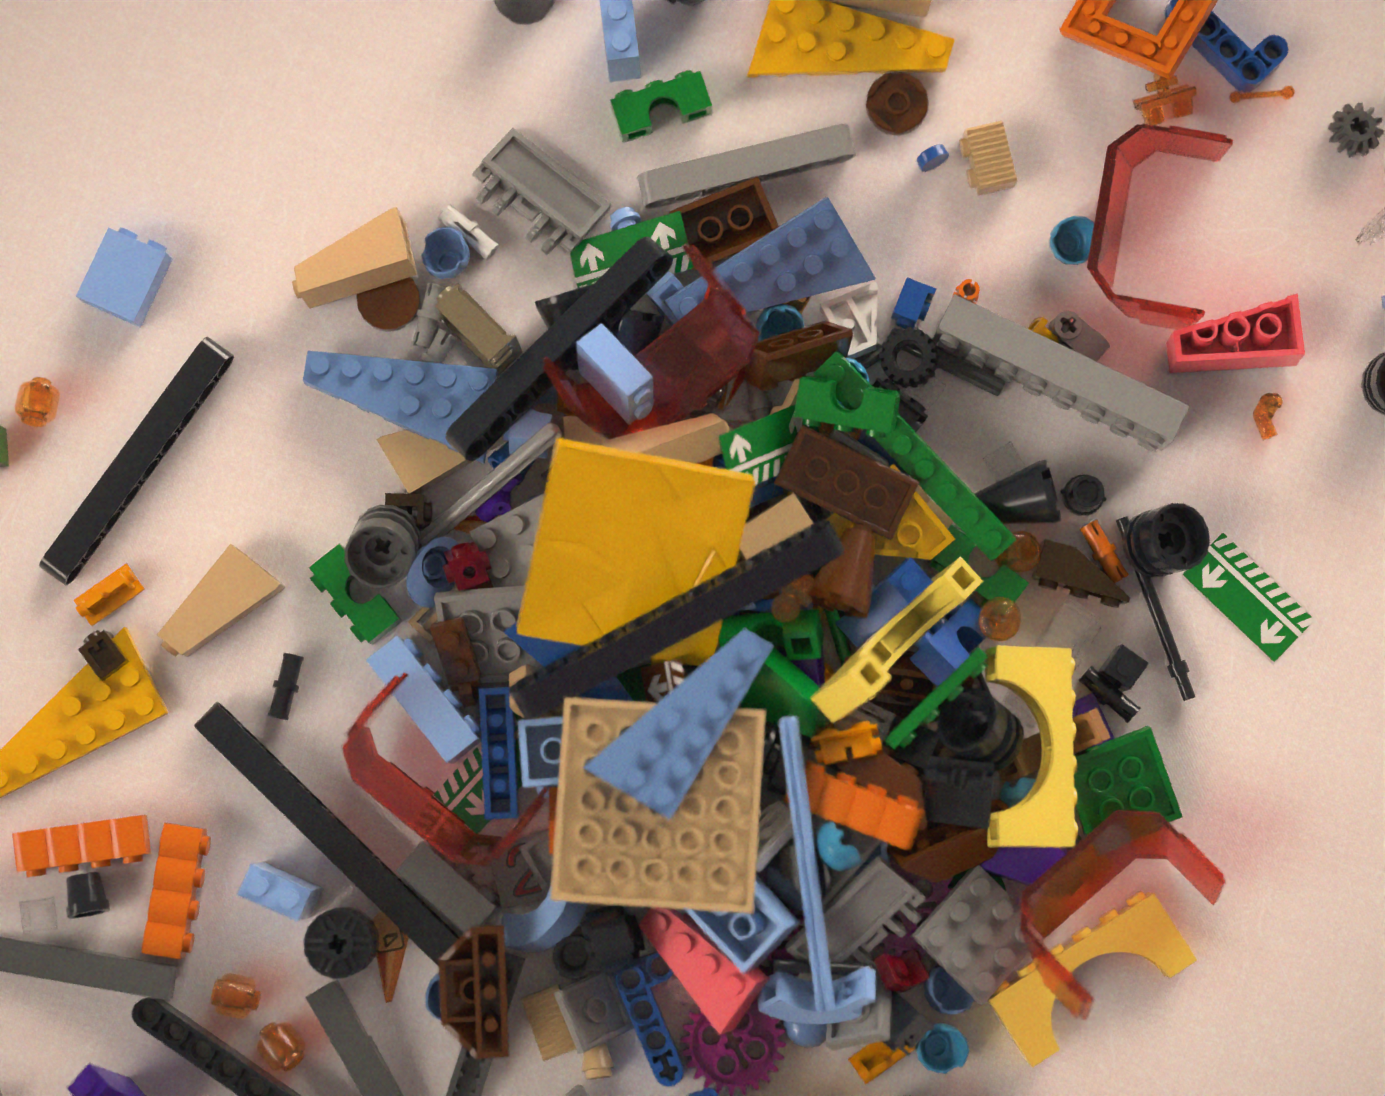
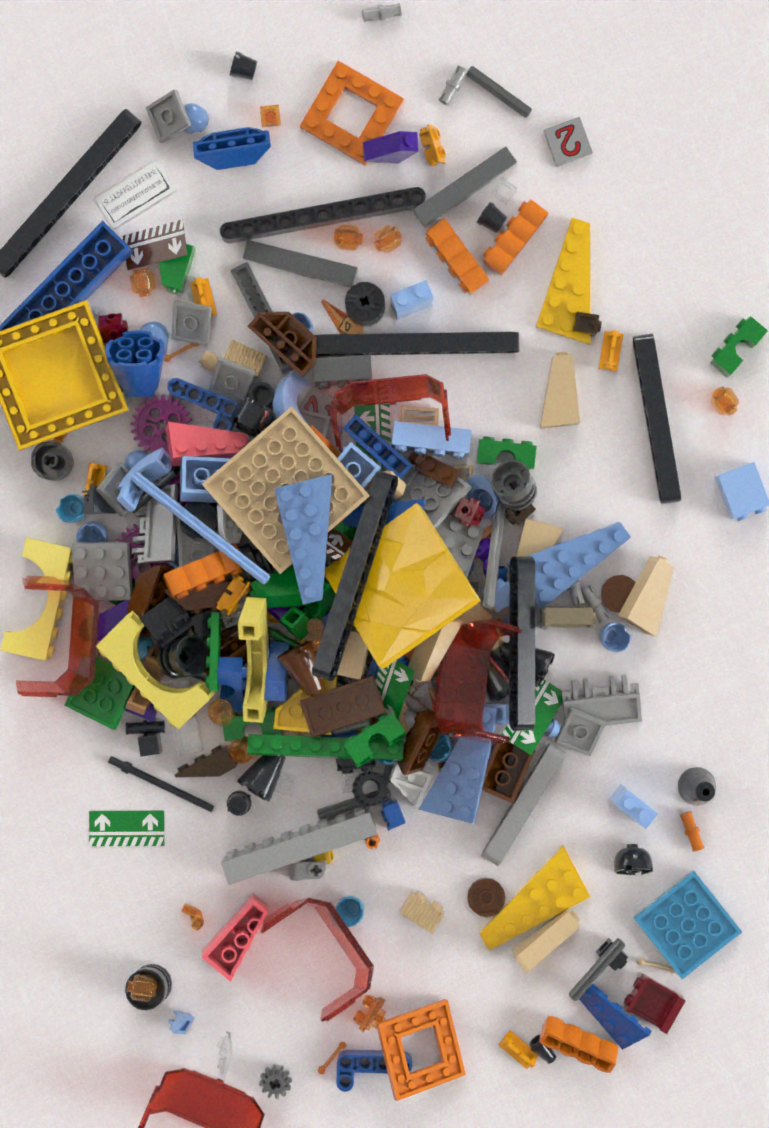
camera: 135 degrees right, 5 degrees up
(70, 1045) = (436, 151): none -> light orange hinge
(285, 686) = (496, 386): black pin -> none
(395, 721) = (414, 416): none -> tan tile
(484, 245) = (627, 655): white pin -> none
(595, 184) = (580, 731): none -> light grey tile
(615, 374) = (486, 655): light blue brick -> none
(684, 93) = (581, 810): green arch -> none
(832, 852) = (194, 543): dark azure hair -> none
(901, 972) = (118, 523): dark red bracket -> none
(932, 157) = (446, 887): blue tile -> none
(1103, 551) = (206, 787): orange pin -> none
(1166, 540) = (183, 817): black wheel -> none

